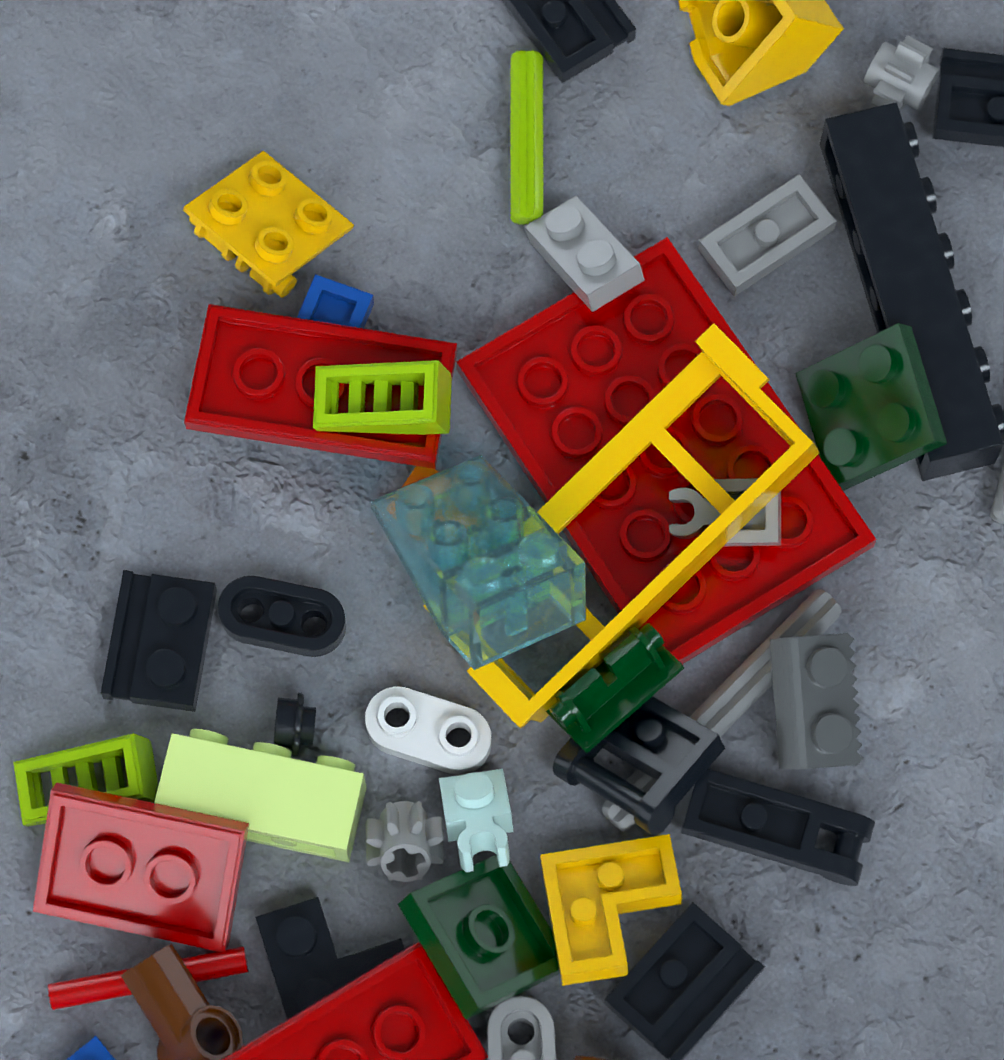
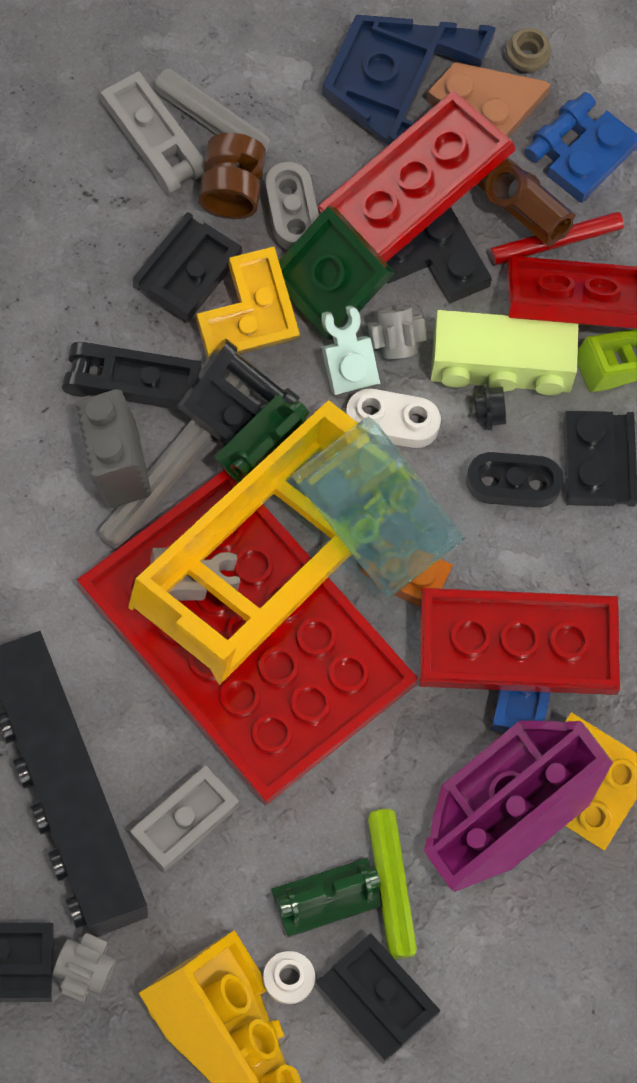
camera: 165 degrees right, 5 degrees down
(374, 185) = (513, 799): none -> magenta wedge
(409, 420) = (450, 637): lime slope -> none
(584, 253) = (331, 778): light grey plate -> none
(606, 131) = (328, 897): none -> dark green hinge
(660, 62) = (289, 993): none -> white plate
(871, 406) = (89, 675): dark green plate -> none

